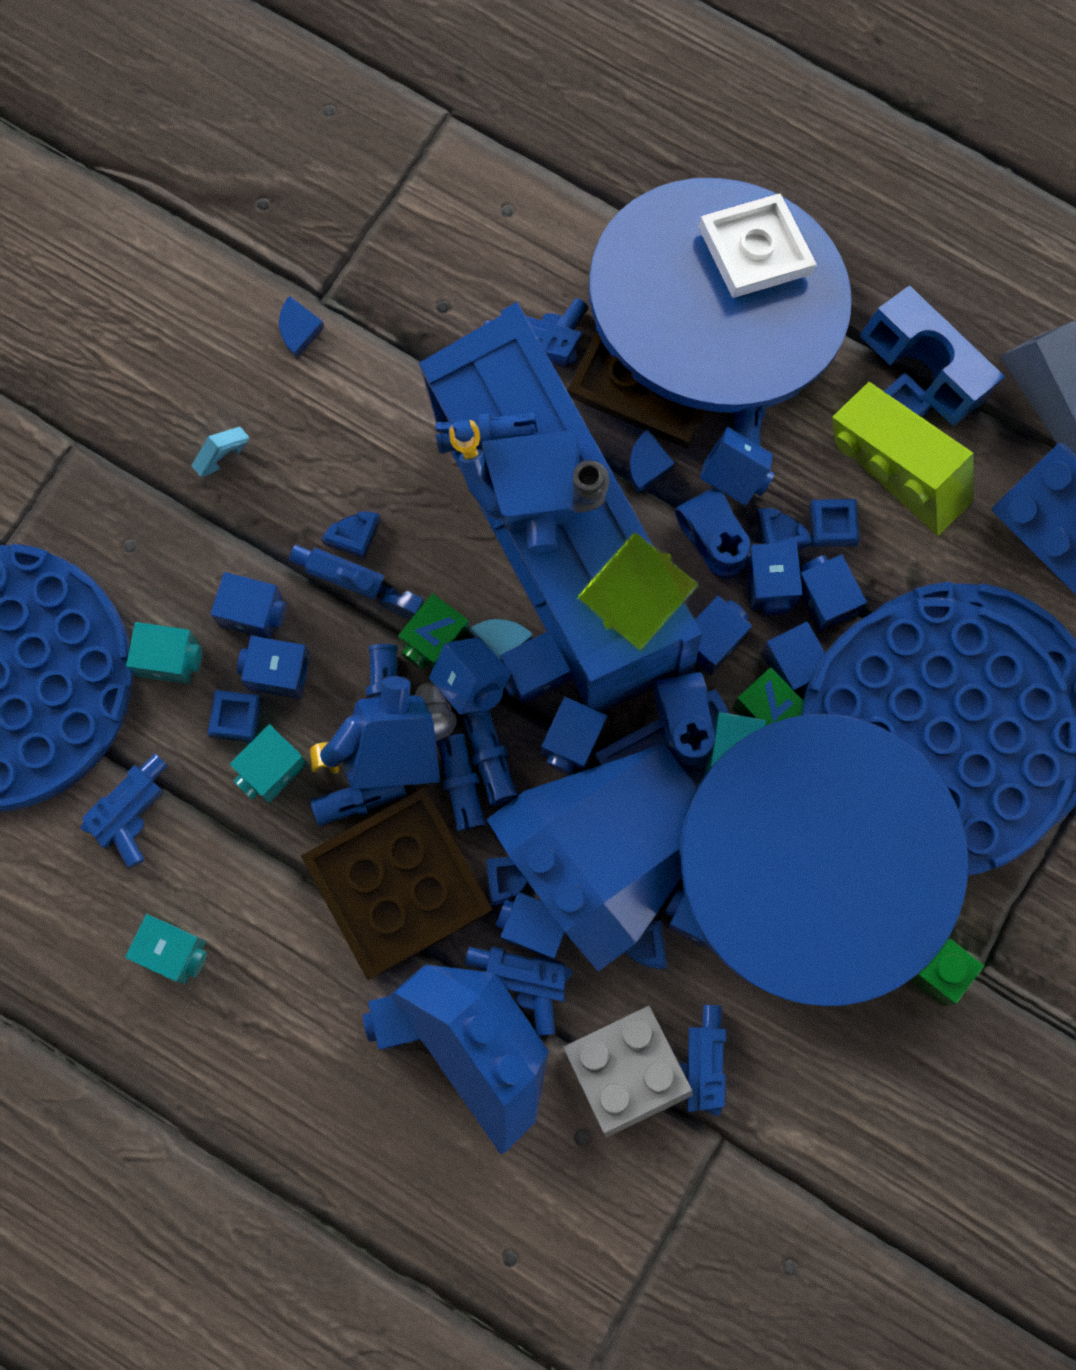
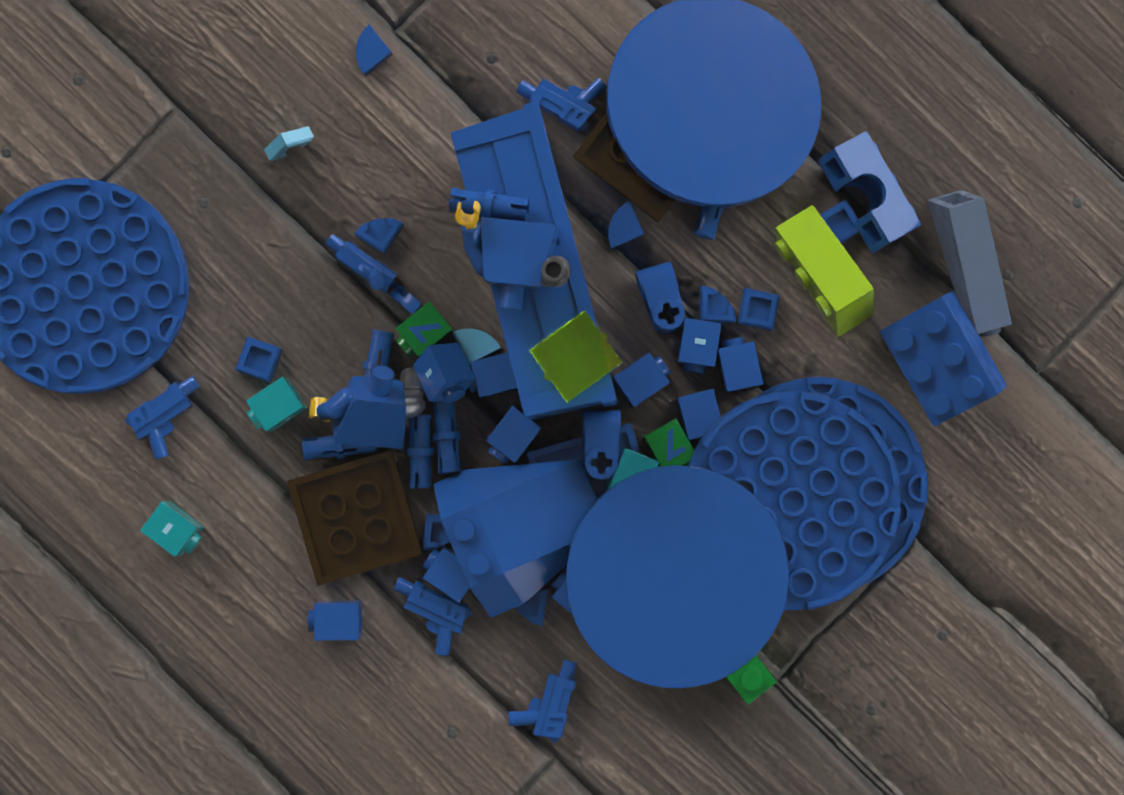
camera: 10 degrees right, 10 degrees up
(163, 653) = (213, 299): teal brick -> none
(248, 606) = (286, 276): blue brick -> none
(274, 667) = (296, 329): blue brick -> none
(479, 1045) = (389, 652): blue wedge -> none
(628, 1071) = (495, 695): light grey plate -> none
(738, 467) = (691, 251): blue brick -> none
(756, 245) = (751, 70): white plate -> none

